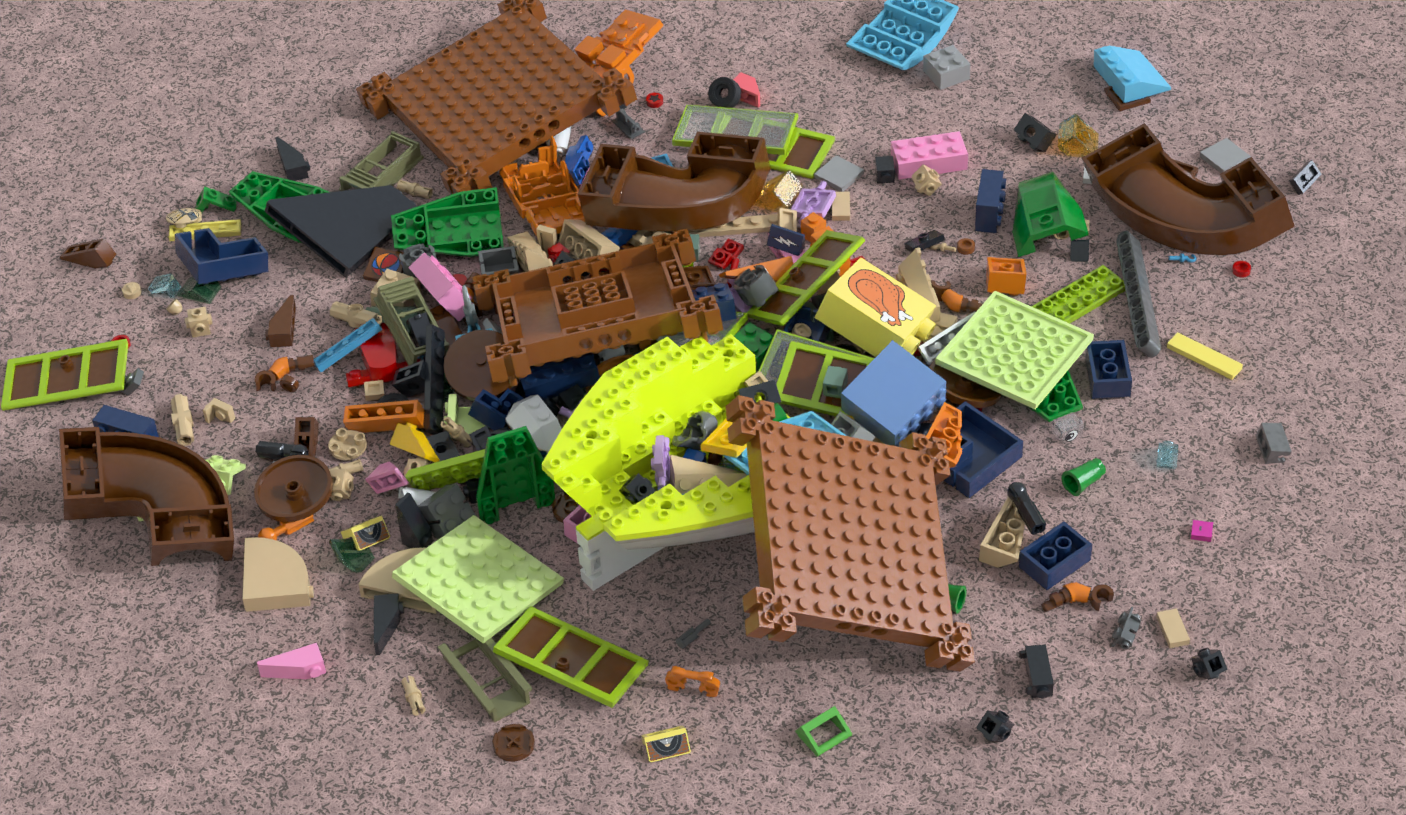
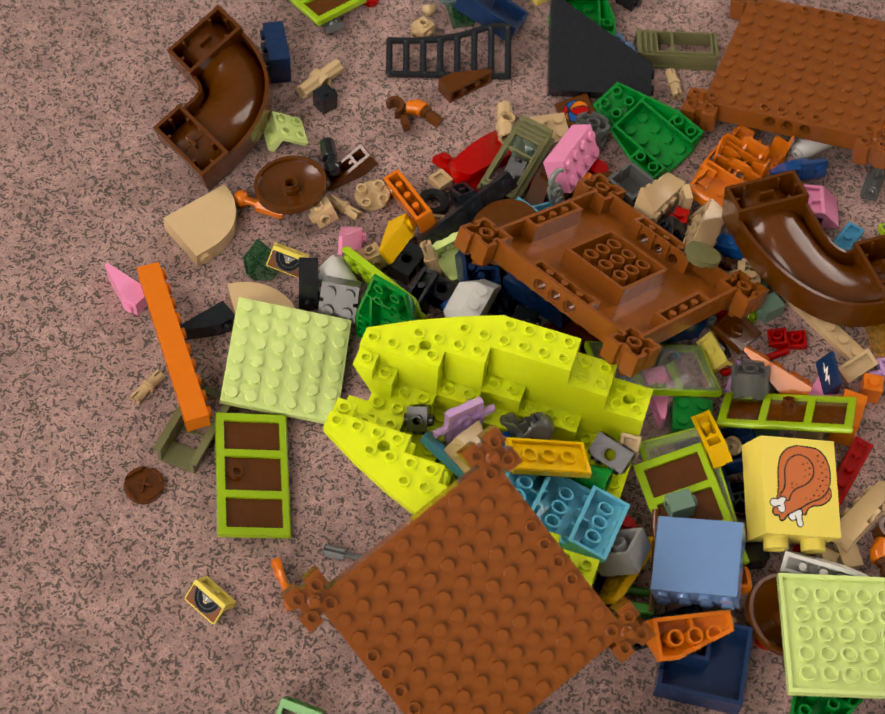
camera: 50 degrees right, 10 degrees up
(210, 426) = (325, 98): none -> black brick
(218, 409) = (343, 92): tan bracket -> none
(226, 311) = (406, 41): none -> black bar
(347, 345) = (468, 134): dark azure tile -> none
(396, 646) = (173, 347): none -> orange brick
(622, 248) = (702, 255): none -> olive tile
(723, 298) = (712, 359): dark blue brick -> none
(800, 329) = (712, 439): none -> yellow slope
(837, 407) = (655, 513): none -> reddish brown piece

